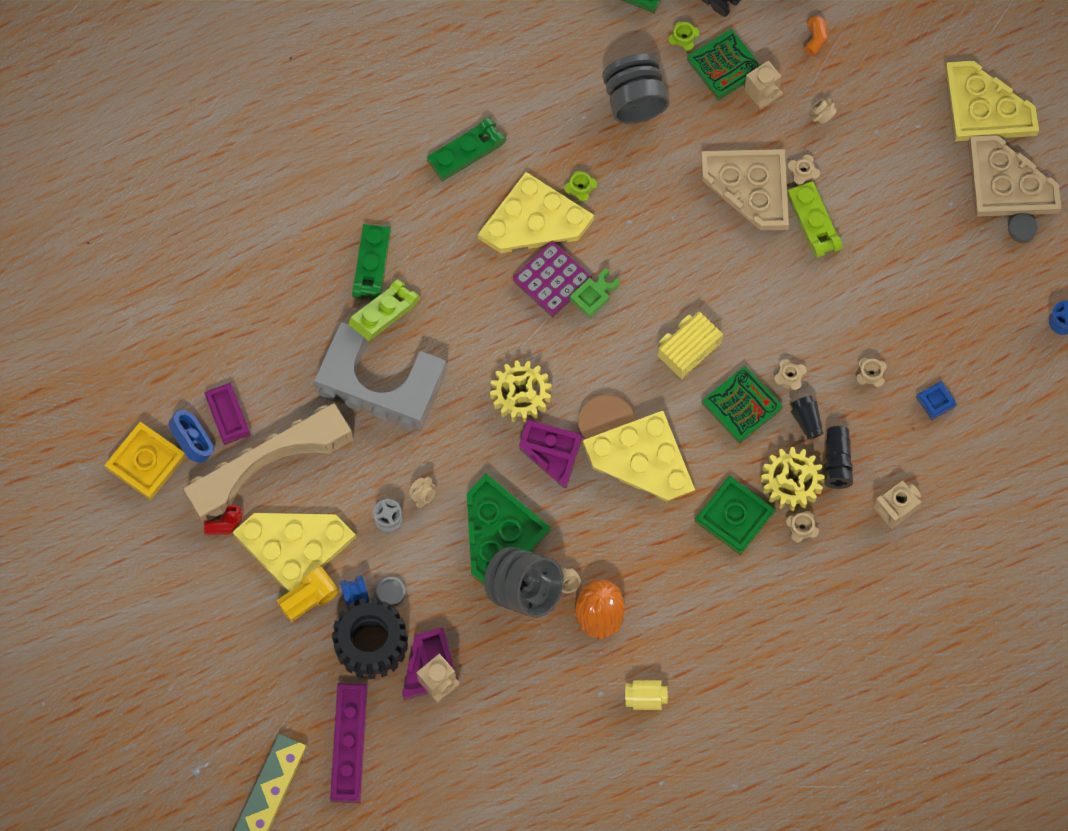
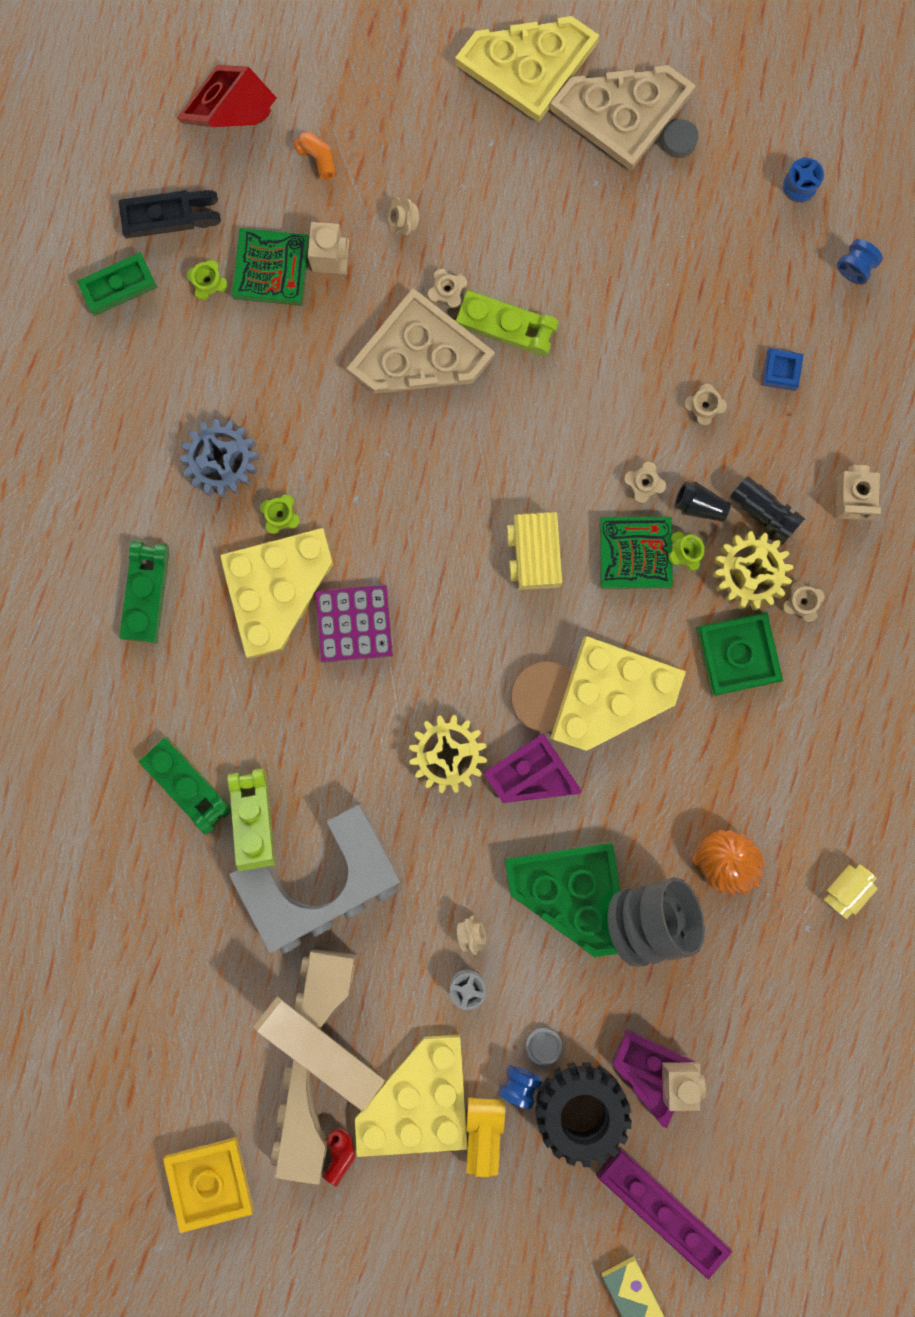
camera: 50 degrees left, 15 degrees up
(191, 436) = (223, 1116): blue plate -> none
(227, 413) = (225, 1059): magenta tile -> none
(278, 454) = (319, 1053): none -> tan tile
(571, 580) = (675, 866): tan hinge -> none
(590, 134) = (232, 453): none -> sand blue gear
(593, 296) = (405, 601): bright green plate -> none
(635, 88) = (227, 375): dark grey wheel -> none
(777, 431) = (694, 549): none -> lime plate
(1044, 390) = (860, 261): none -> blue wheel

